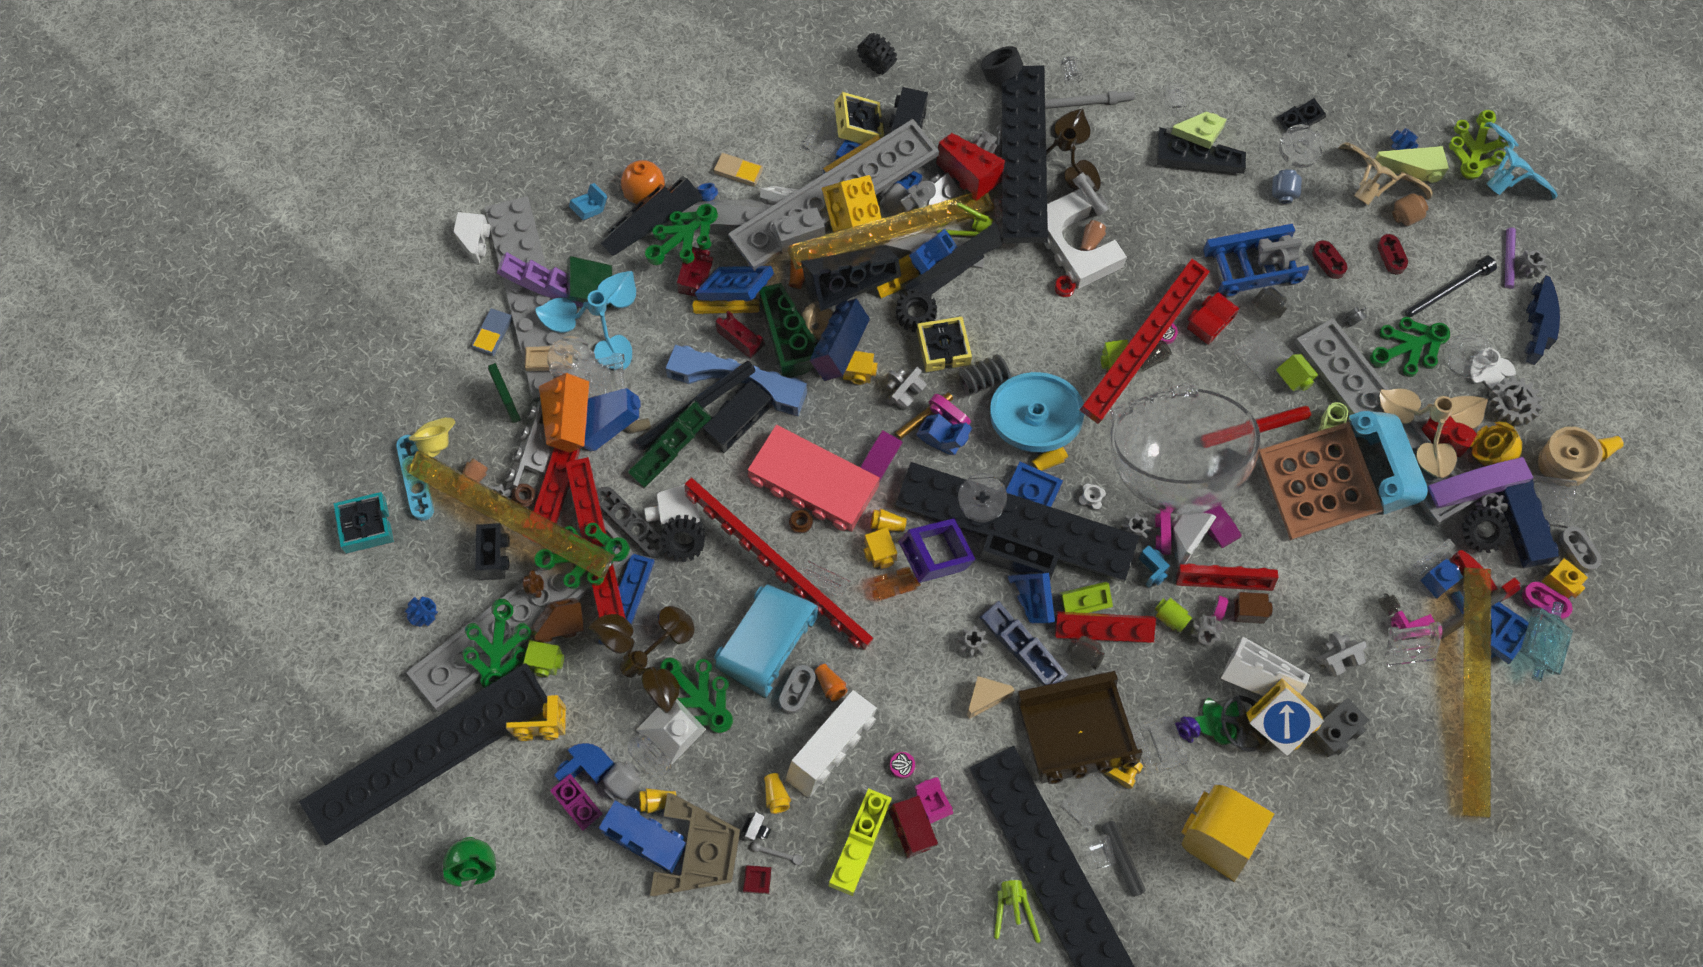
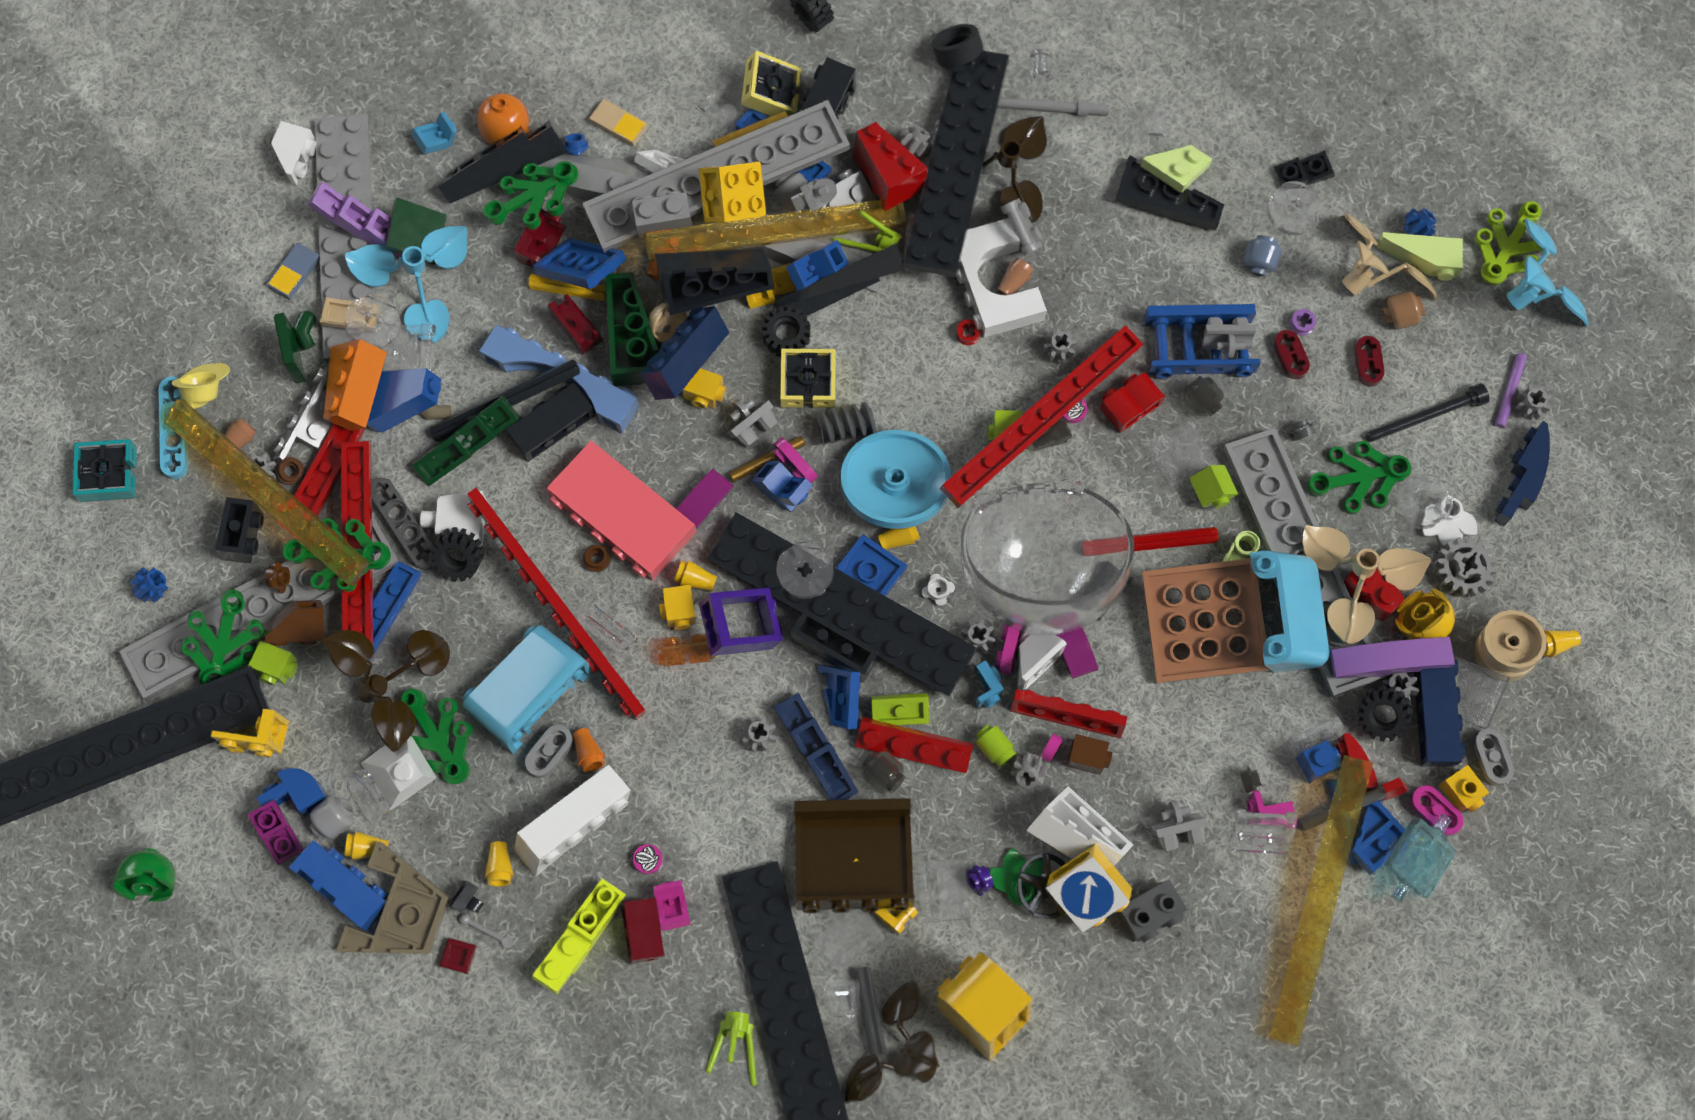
camera: 10 degrees right, 5 degrees up
(510, 375) = (303, 327): none -> dark green arm
(988, 694) = (760, 798): tan slope -> none
(1143, 289) = (1062, 352): none -> light grey gear
(1180, 889) = (915, 1059): none -> dark brown plant
(1336, 228) = (1308, 327): none -> medium lavender bush

